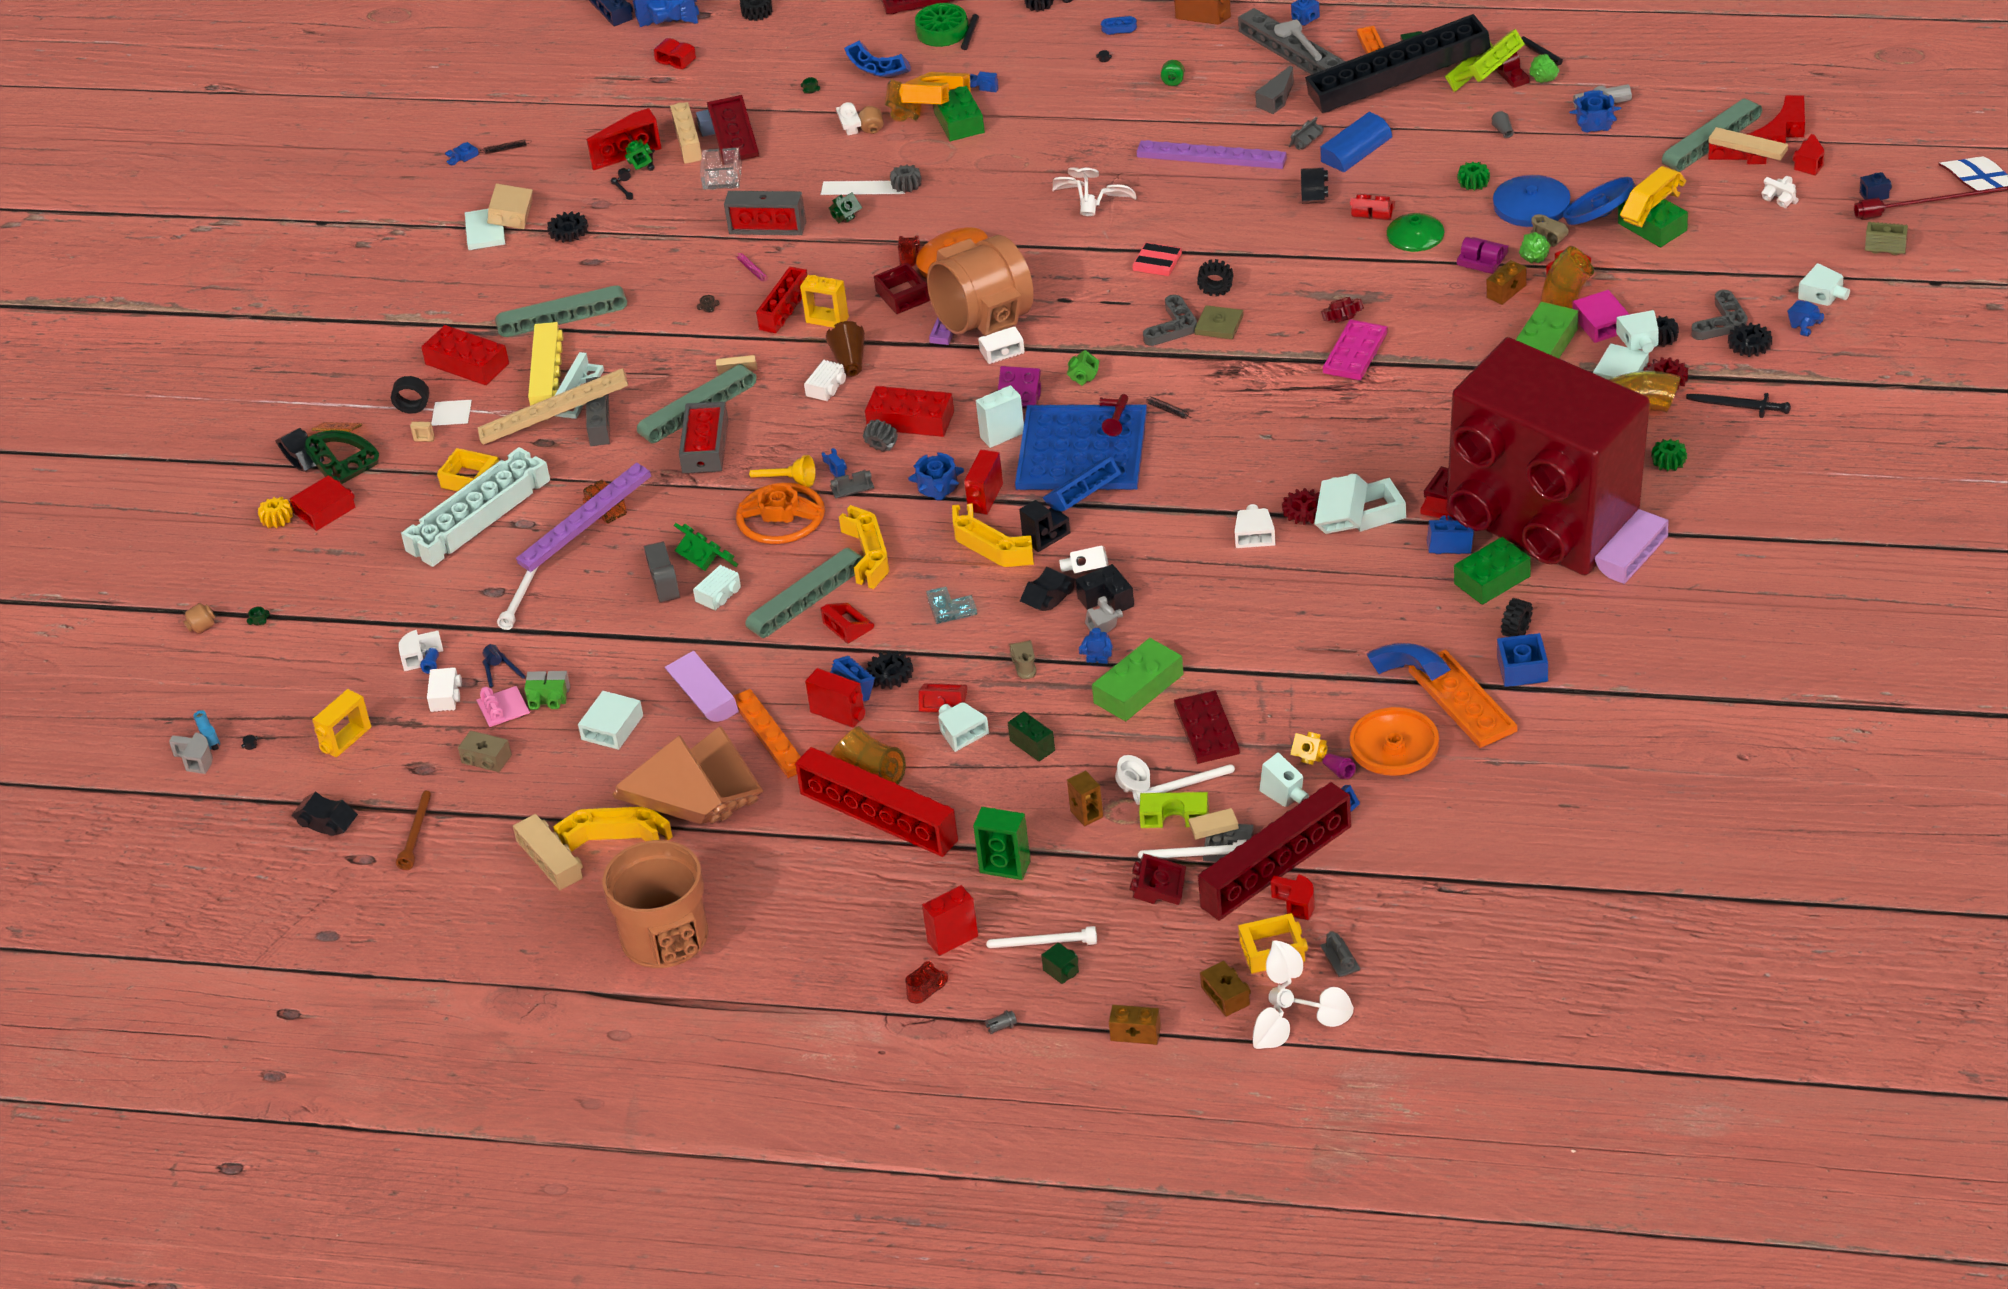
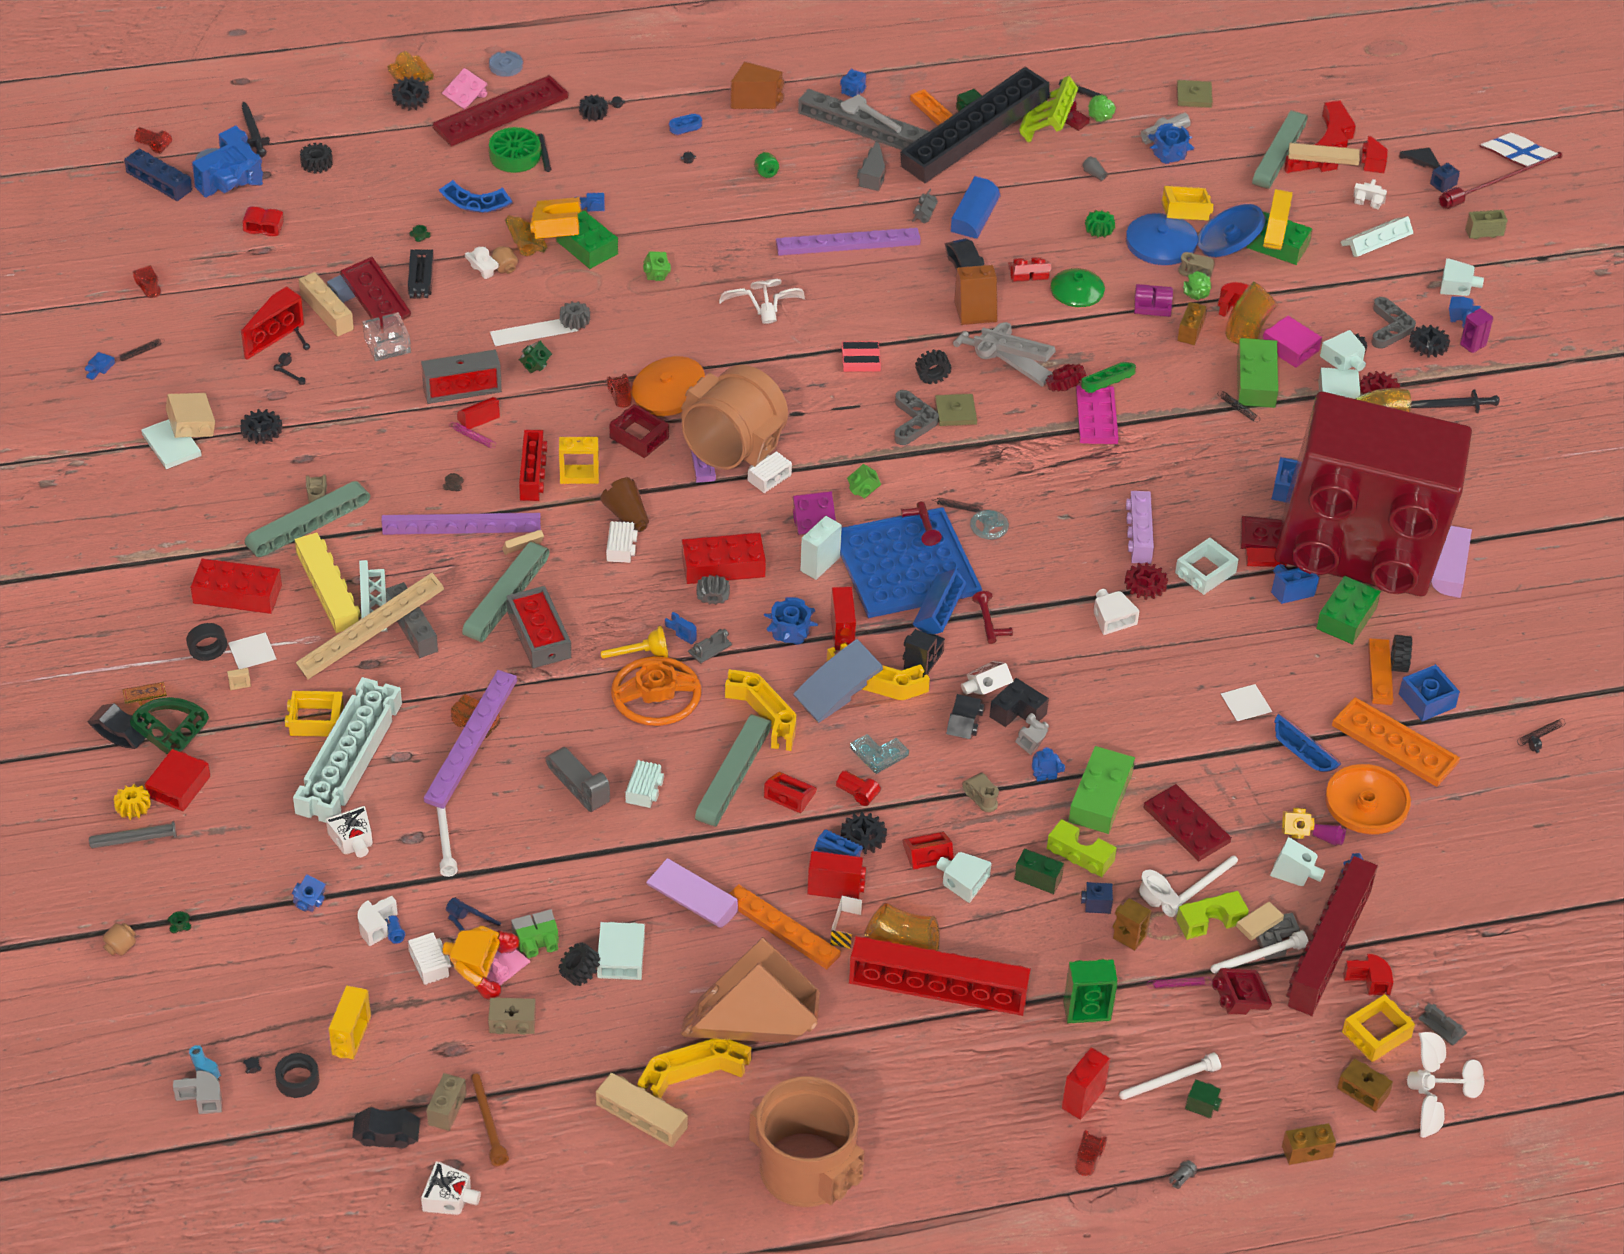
camera: 30 degrees left, 5 degrees up
(262, 540) = (133, 835): none -> dark grey axle
(283, 767) = (297, 1060): none -> black tyre
(344, 876) = (448, 1191): none -> white torso
(373, 615) = (309, 894): none -> blue brick
(386, 806) = (446, 1102): none -> dark tan brick
(442, 573) = (351, 831): none -> white torso
(476, 689) = (474, 954): none -> light orange torso
(544, 89) = (147, 281): none -> clear red piece
(564, 721) = (579, 964): none -> black tyre
(583, 284) = (316, 487): none -> dark tan piece
(638, 154) = (292, 336): green brick -> none
(691, 339) = (461, 523): none -> medium lavender plate
(698, 551) = (601, 749): green bracket -> none
(766, 248) = (479, 413): none -> red brick
(789, 120) = (420, 272): none -> black hinge
(821, 732) = (848, 905): none -> sticker
(911, 632) = (862, 790): none -> red piece
(944, 533) = (838, 680): none -> sand blue slope
(1007, 146) = (656, 266): none -> bright green brick
(1071, 766) = (1097, 897): none -> dark blue brick
(1076, 719) = (1095, 857): none -> lime arch
(1126, 863) = (1179, 983): none -> dark pink piece
(1132, 491) = (982, 598): none -> dark red piece
(1186, 426) = (990, 520): none -> clear light blue piece
(1298, 219) = (976, 294): none -> dark orange slope
(1303, 275) = (1011, 349): none -> light grey piece
(1330, 455) = (1140, 527): none -> lavender brick
(1337, 635) = (1246, 702): none -> white sticker
(1341, 503) = (1186, 572): light aqua brick -> none
(1365, 681) = (1304, 746): none -> blue brick
(1385, 315) = (1108, 376): none -> green plate
(1402, 654) = (1333, 709): blue brick -> none
(1486, 641) = (1380, 671): none -> orange plate
(1573, 169) = (1186, 203): none -> yellow window
(1608, 730) = (1535, 744): none -> black piece
(1617, 724) = (1539, 735): none -> piece
(1657, 70) = (1194, 93): none -> olive plate
(1764, 233) = (1379, 236): none -> light aqua fence
(1803, 336) = (1476, 330): none -> magenta brick
(1863, 164) = (1422, 157): none -> black tile

